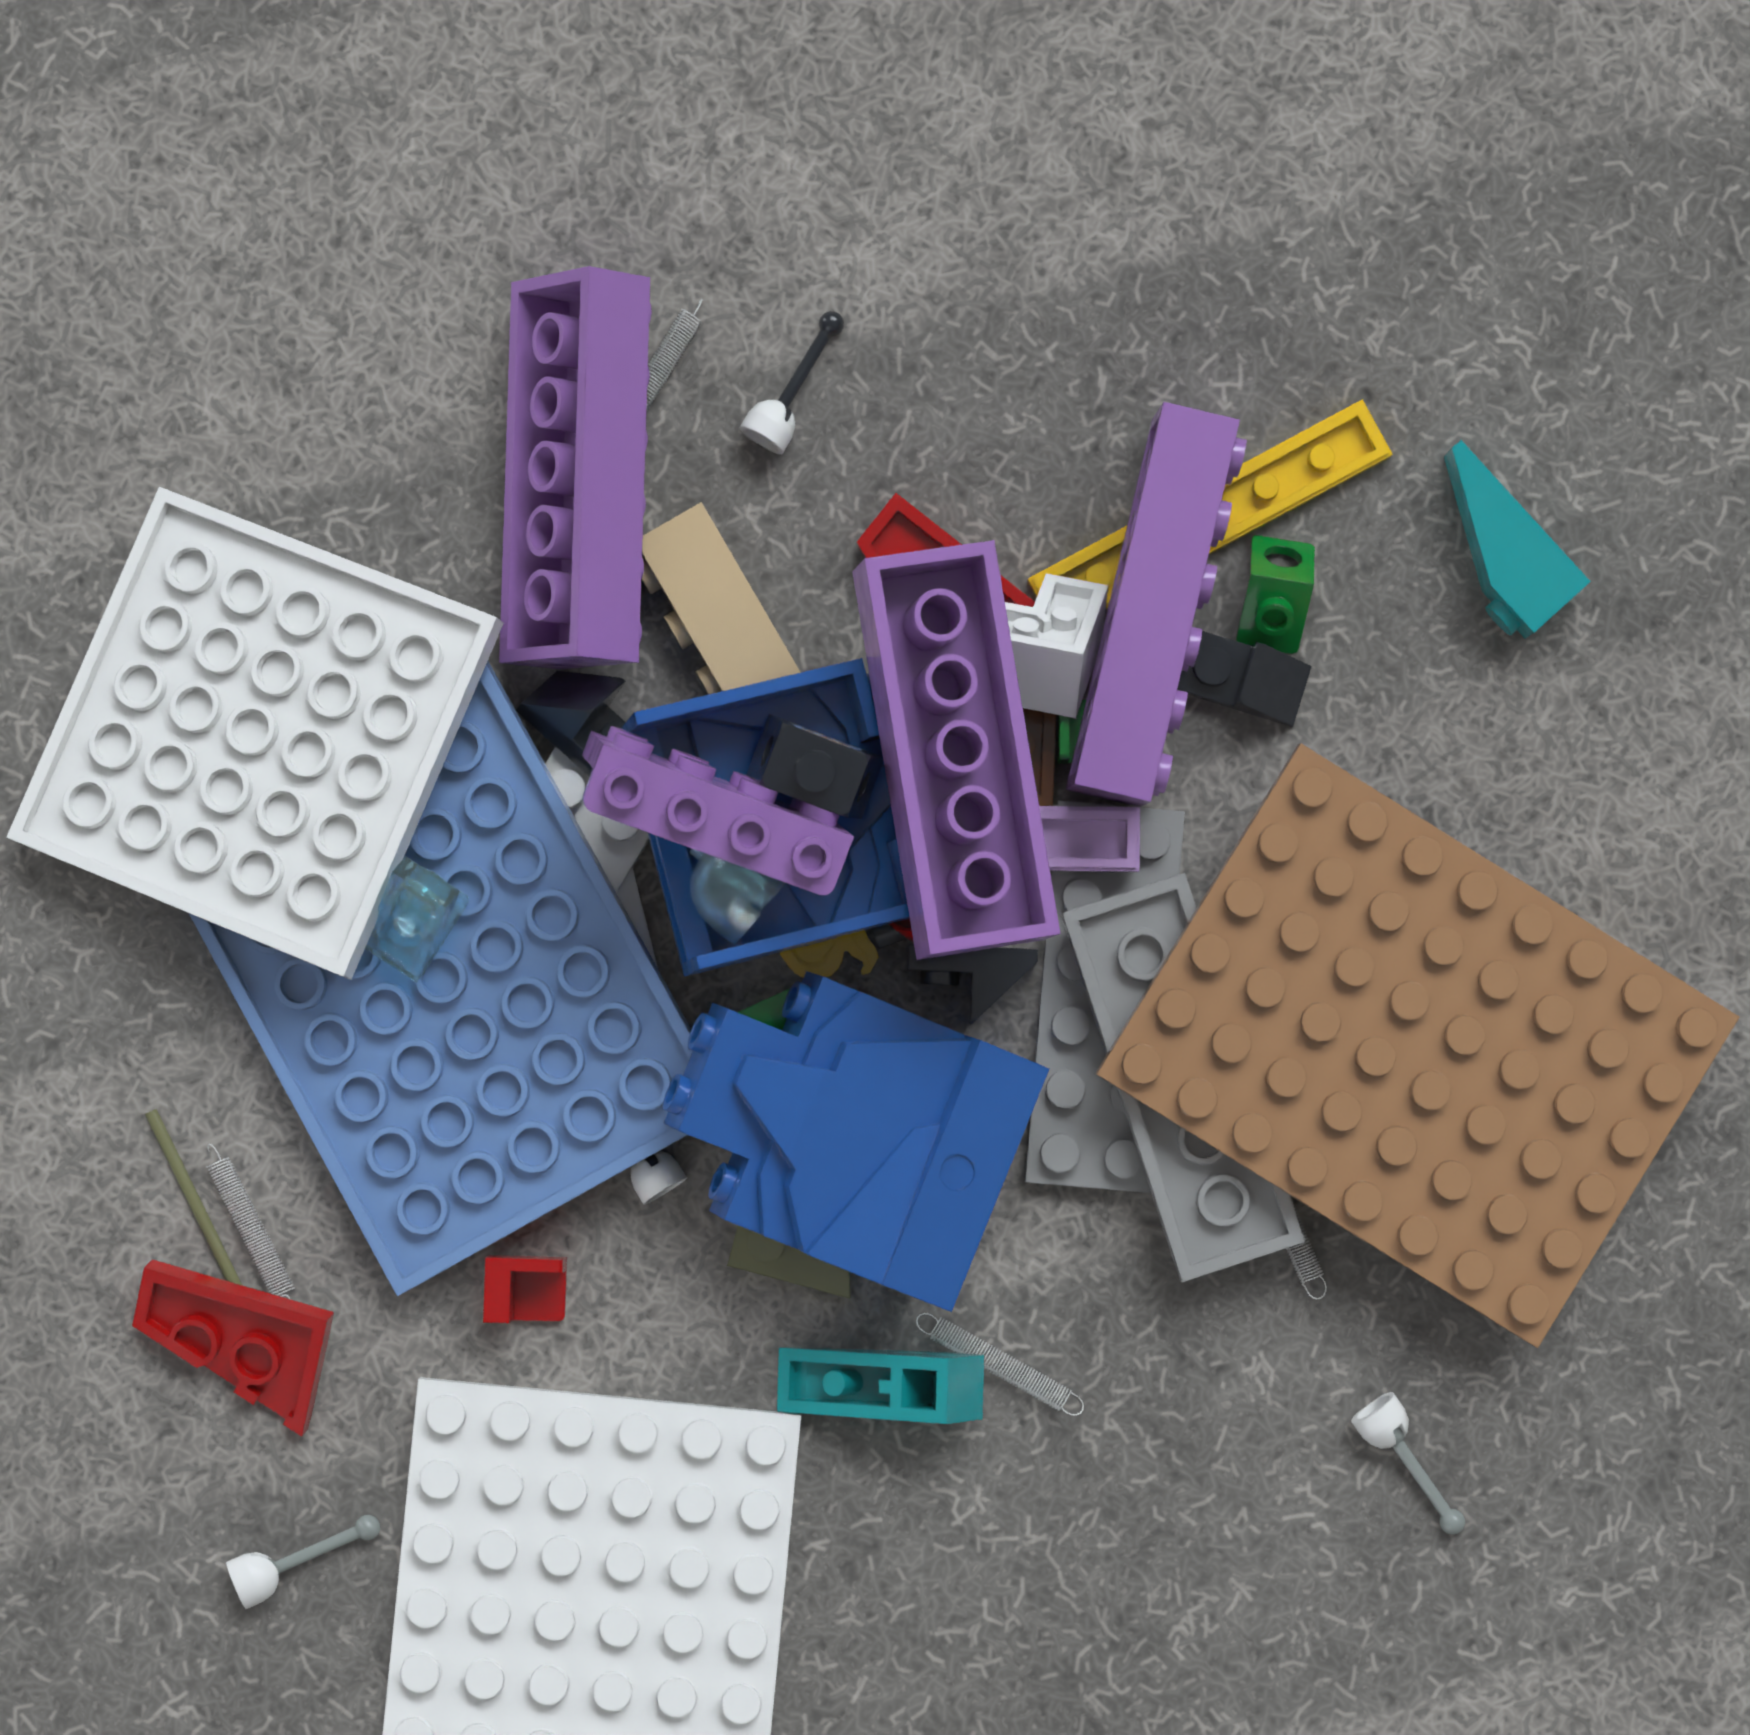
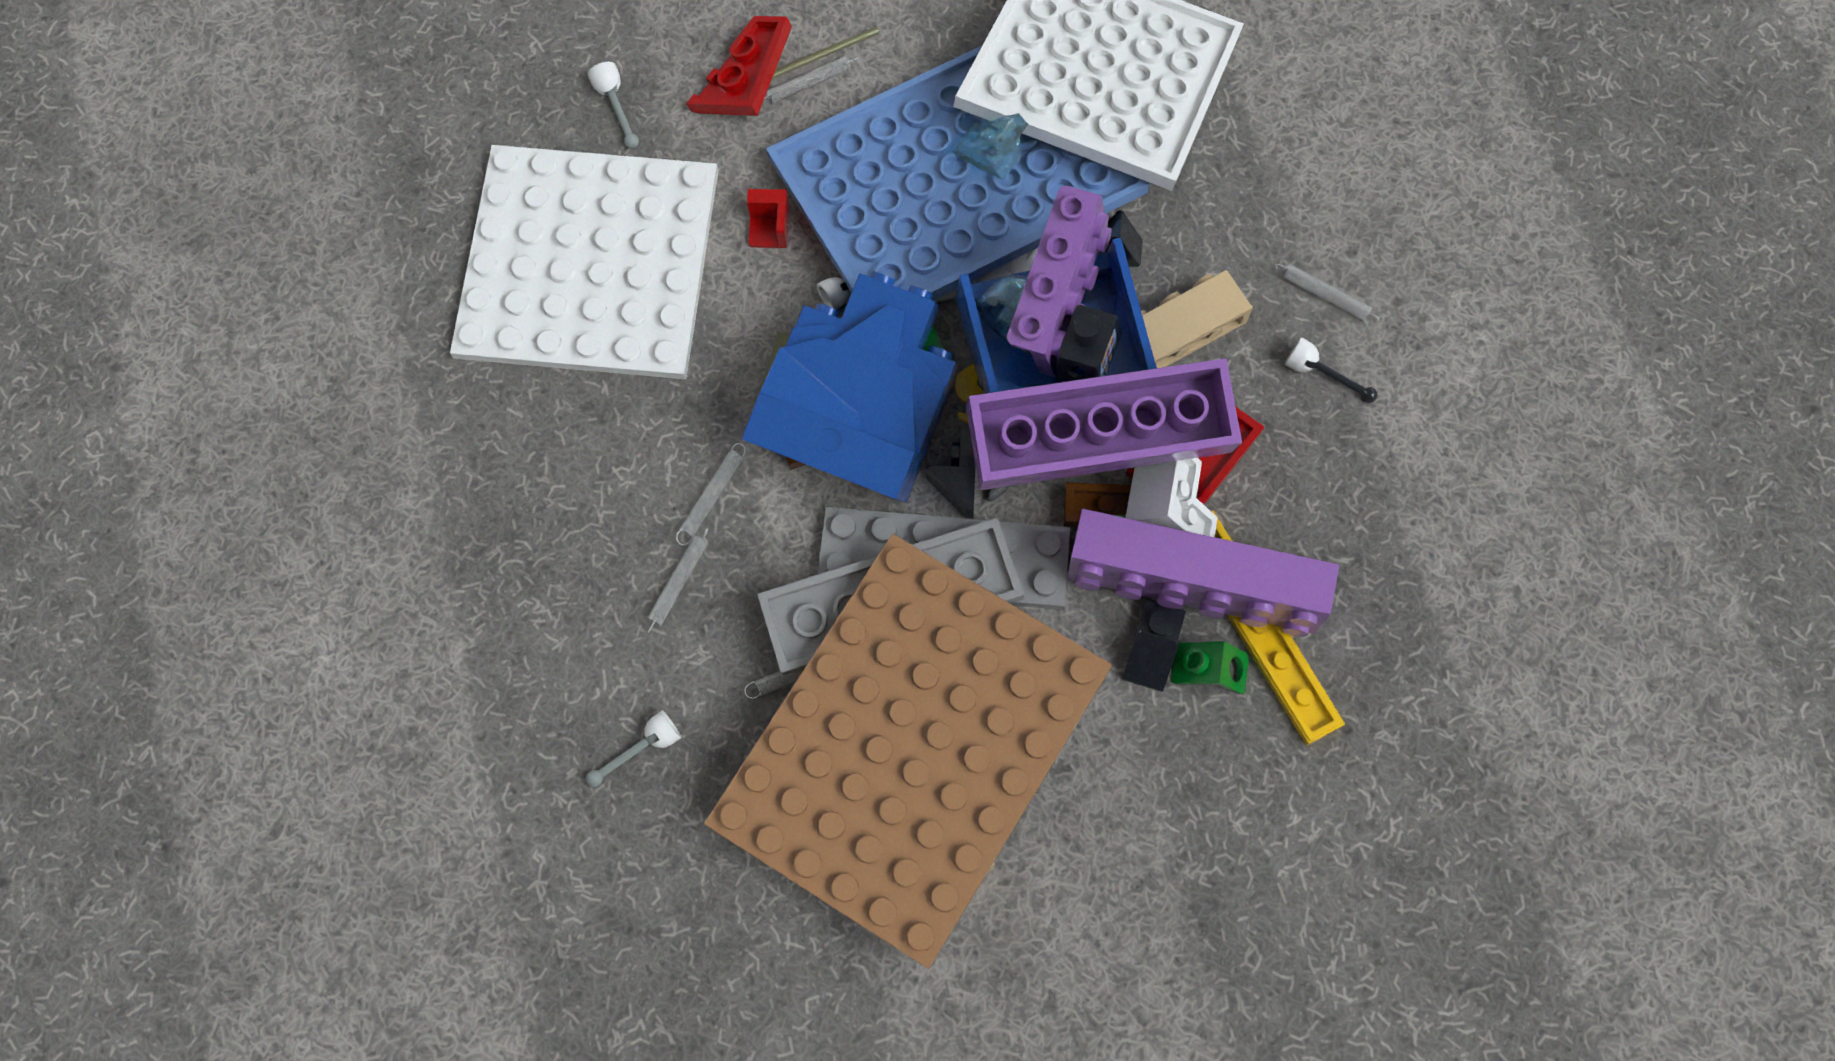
camera: 90 degrees right, 15 degrees down
(575, 469) = (1270, 235): medium lavender brick -> none
(881, 1384) = (700, 422): teal slope -> none
(1092, 838) = (1045, 532): lavender tile -> none
(1134, 1417) = (665, 589): none -> white piece
(1513, 556) = (1244, 821): teal slope -> none

